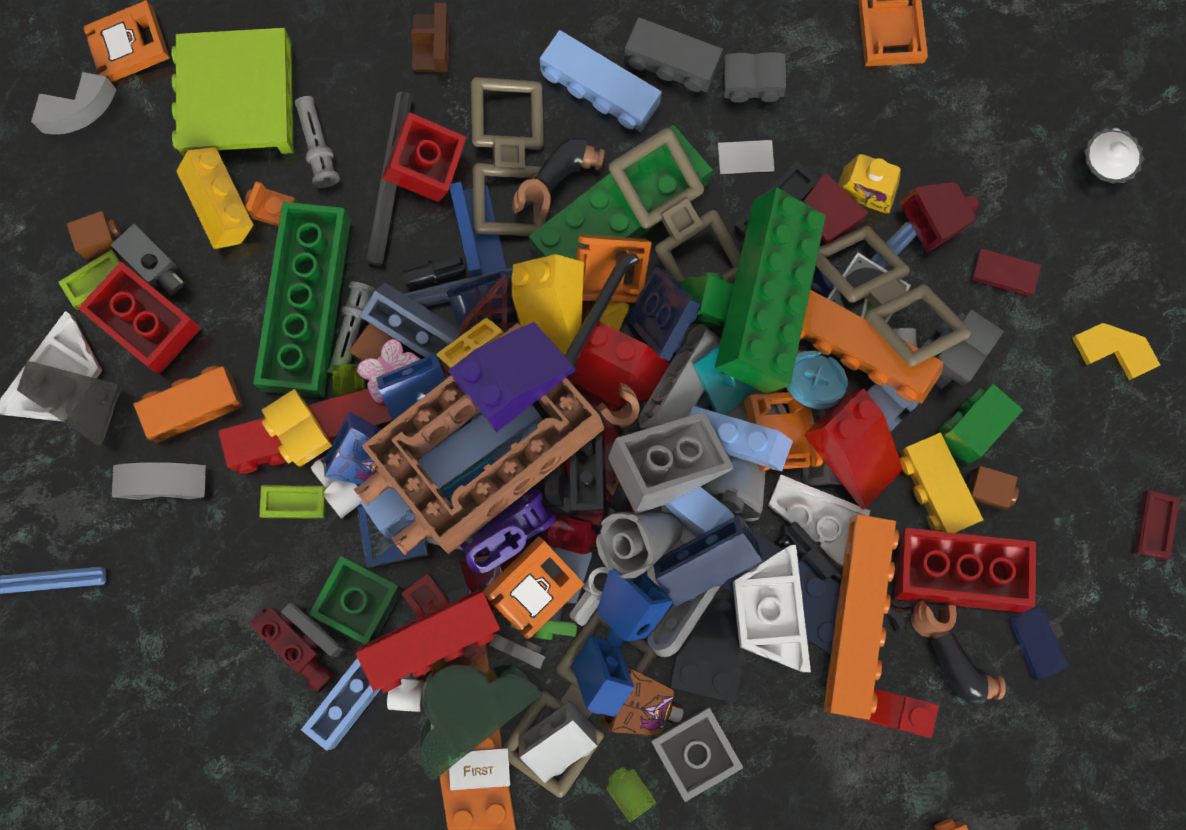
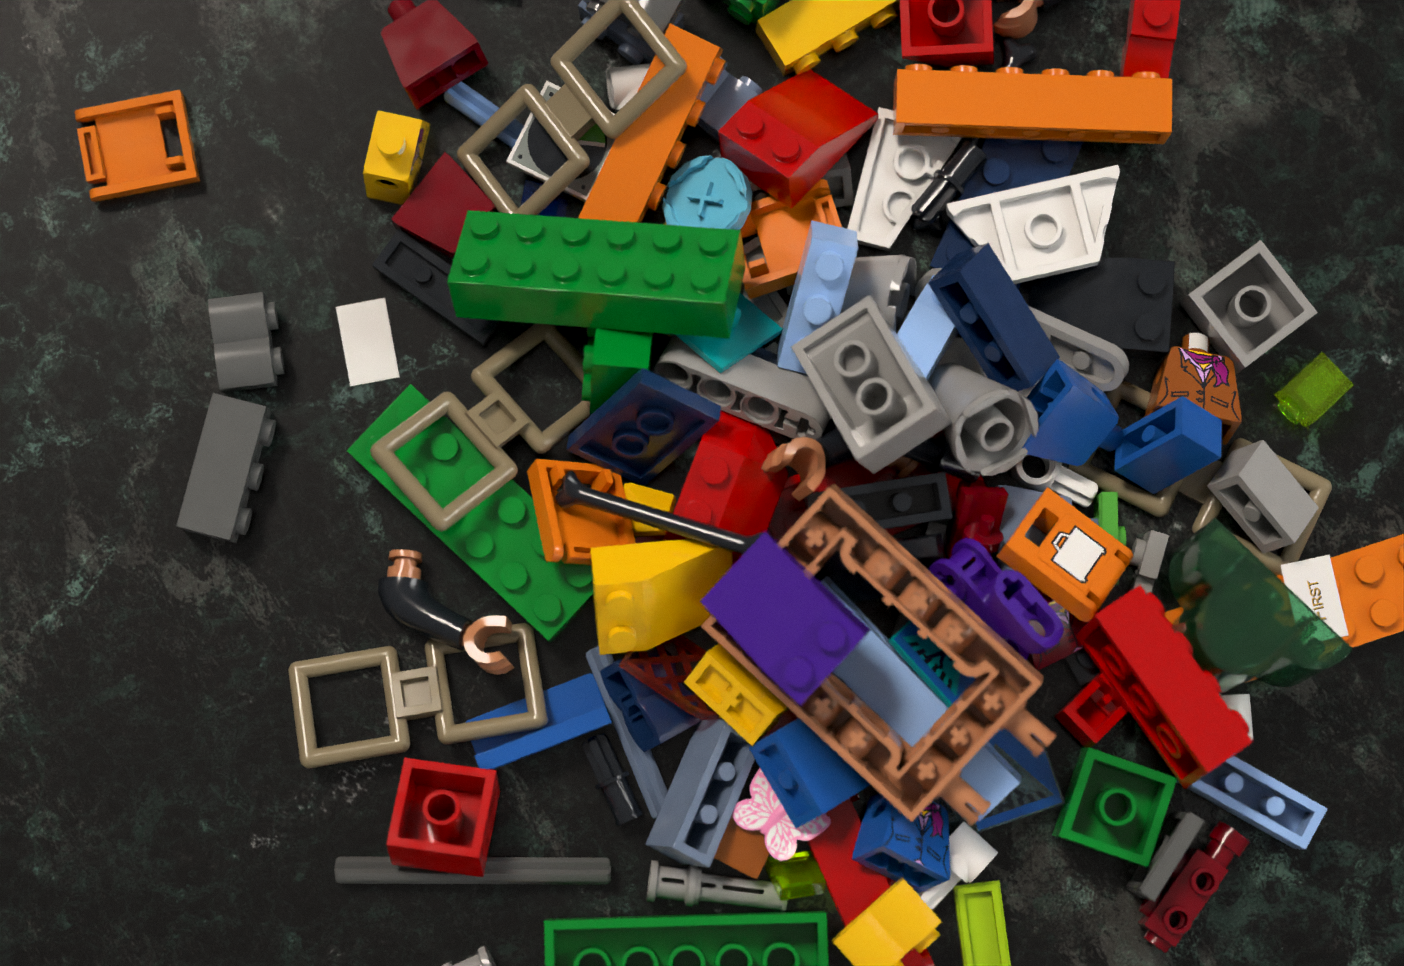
camera: 105 degrees left, 5 degrees up
(431, 40) = (242, 844): reddish brown panel -> none
(599, 81) = (281, 573): light blue brick -> none

